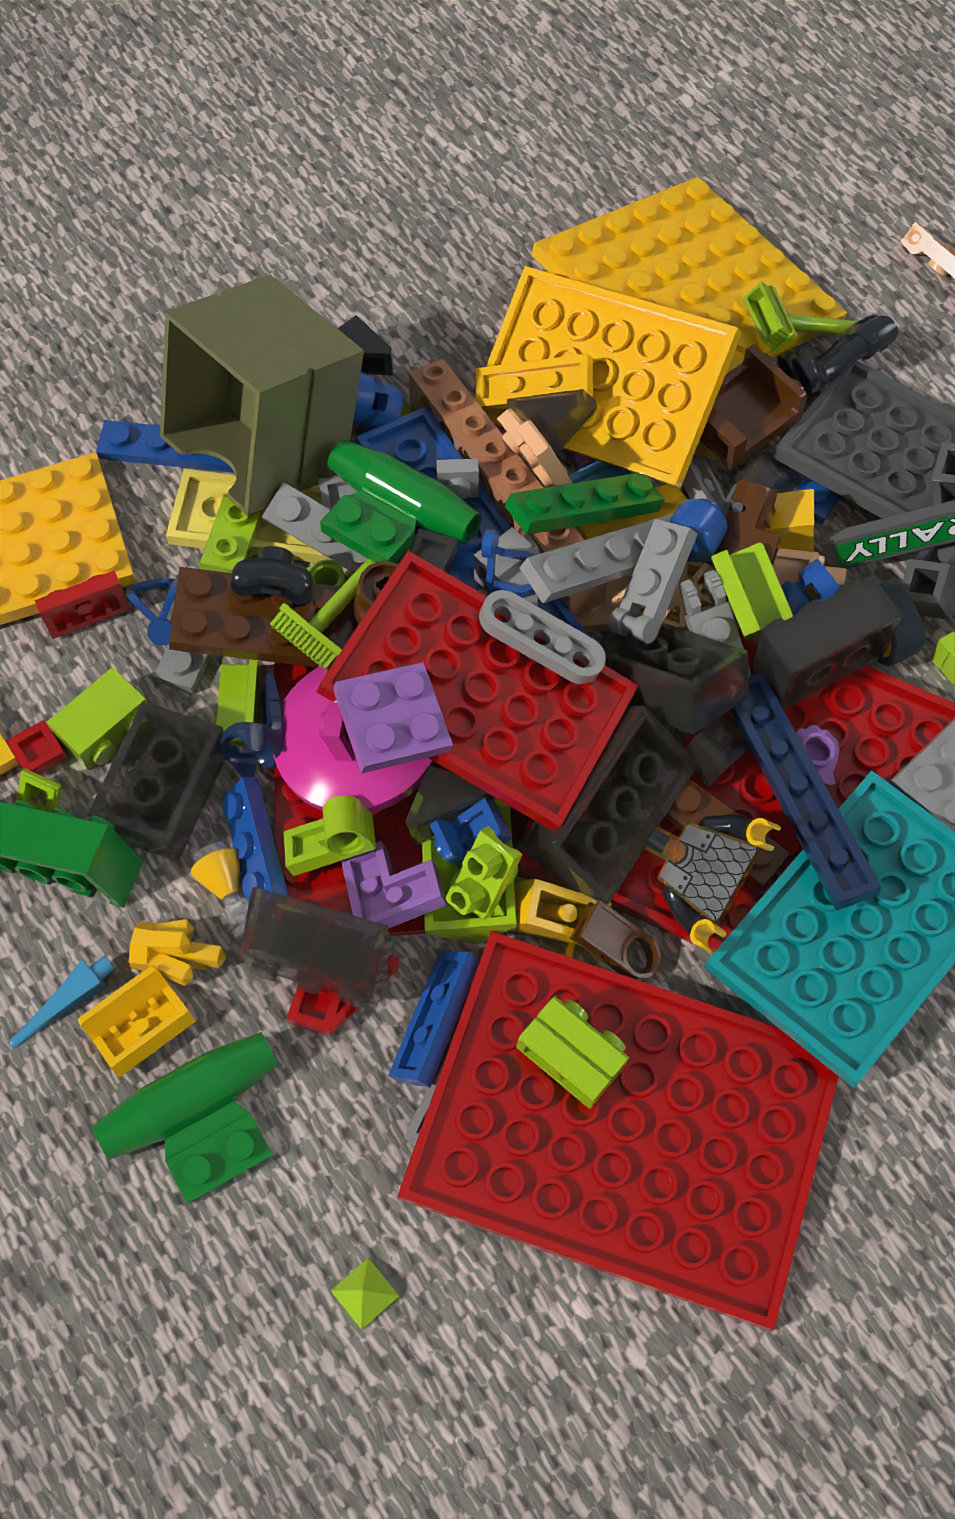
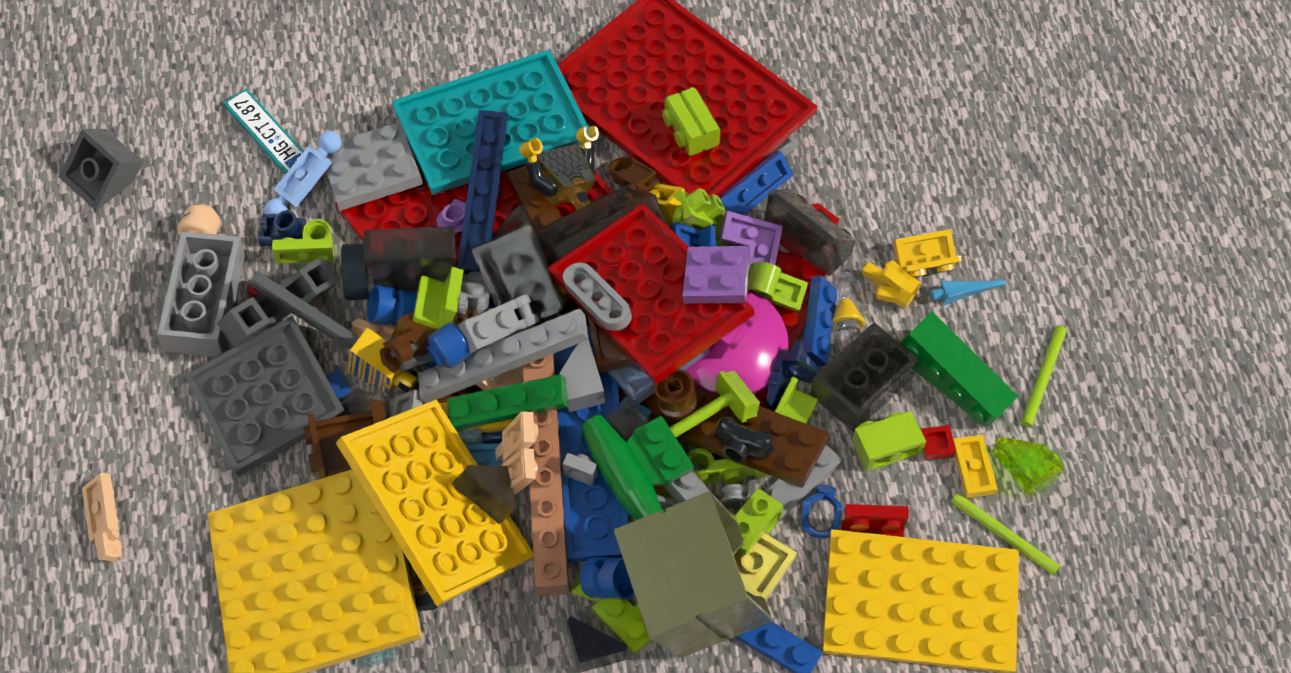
camera: 160 degrees left, 5 degrees down
(33, 784) = (942, 413): lime slope -> none
(196, 1115) = (909, 195): green plate -> none
(365, 1293) = (851, 89): lime slope -> none
(490, 550) = (599, 361): blue piece -> none
(531, 378) = (486, 519): yellow plate -> none
(780, 328) = (281, 498): lime piece -> none
(859, 341) = (274, 477): black piece -> none

